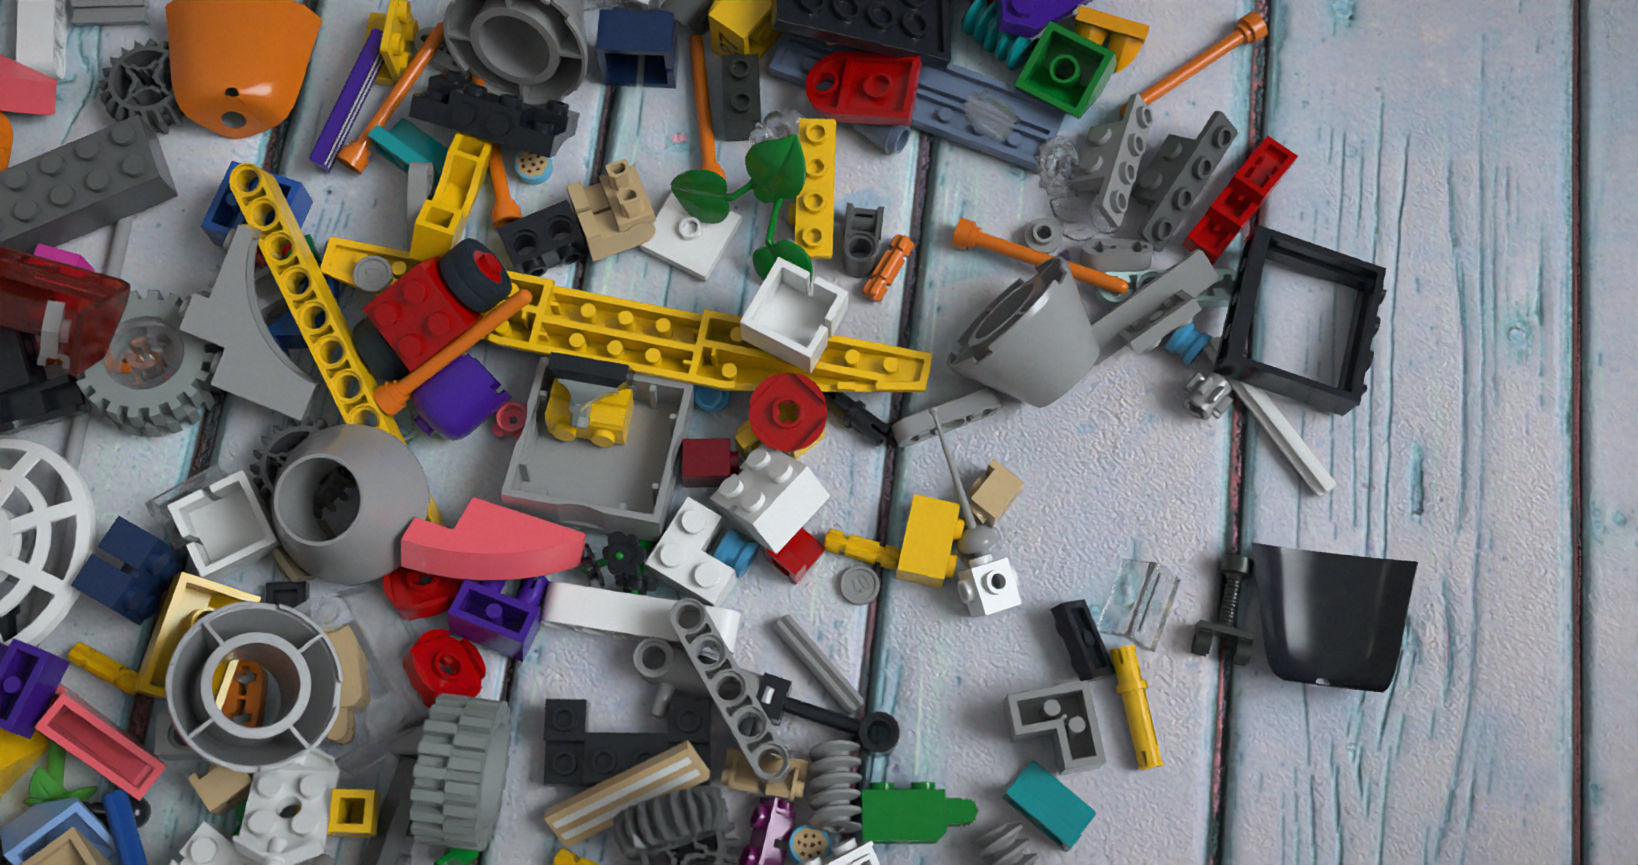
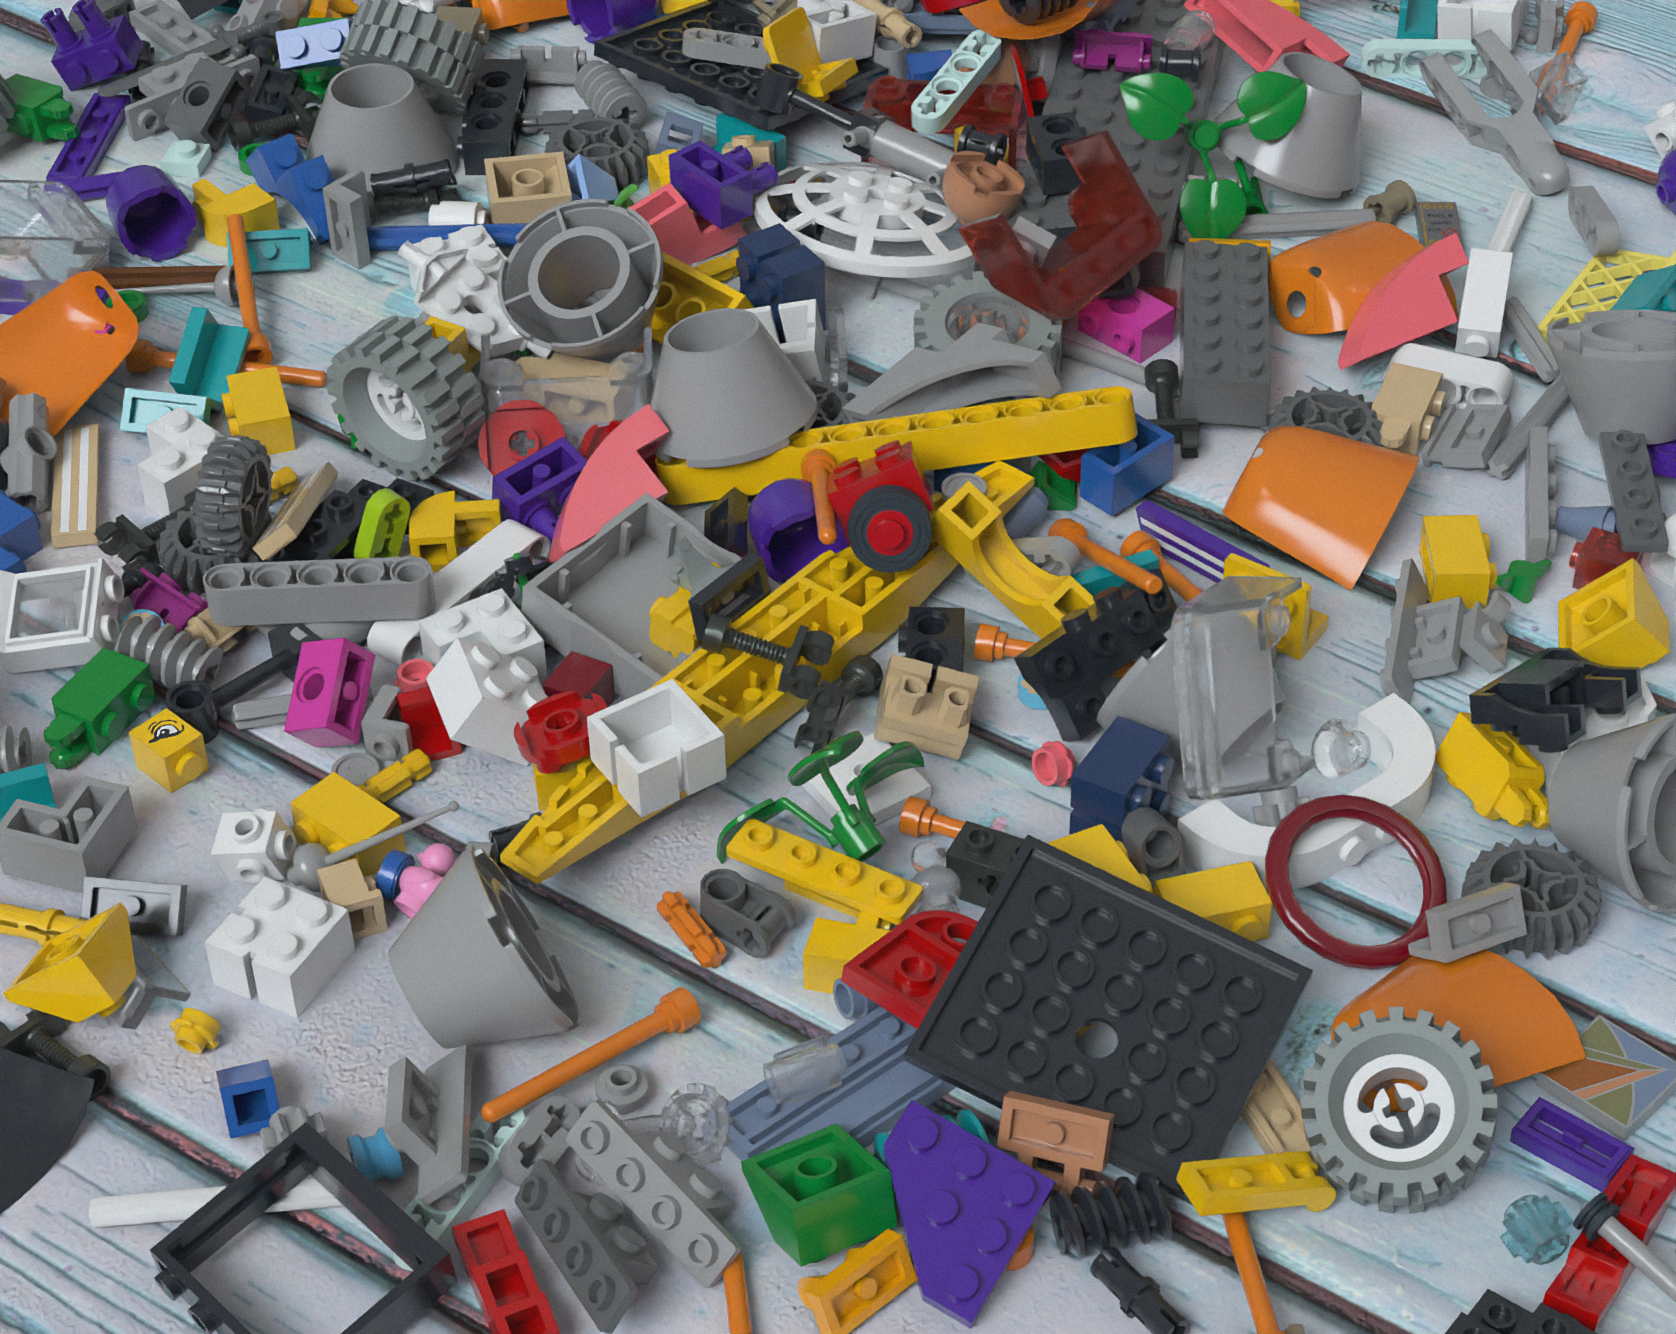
camera: 120 degrees right, 30 degrees down
(85, 45) = (1408, 406): none -> tan hinge
(195, 182) = (1162, 379): none -> pearl dark grey bar
(364, 208) = (1105, 558): none -> orange piece
(471, 457) = (727, 522): none -> black plate
(579, 679) = (443, 525): none -> yellow brick
(612, 711) = (382, 525): none -> lime beam
(613, 119) = (1053, 764): none -> coral plate
(638, 352) = (798, 680): none -> pearl dark grey bar
(651, 274) = (828, 701): none -> pearl dark grey bar
(745, 585) = (413, 675): none -> coral plate
(802, 622) = (329, 692): none -> dark pink brick
(811, 586) = (381, 726): none -> light grey bracket
(865, 155) = (835, 944): none -> yellow brick
(926, 722) = (169, 750): none -> yellow brick
(944, 482) = (390, 872): none -> blue tile
(962, 443) = (419, 882): none -> bright pink animal
(1064, 504) = (293, 943): none -> white piece
(1157, 524) = (195, 1030): none -> yellow plate
(1173, 622) = (80, 969): none -> yellow slope
(1188, 452) = (248, 1097): none -> blue brick

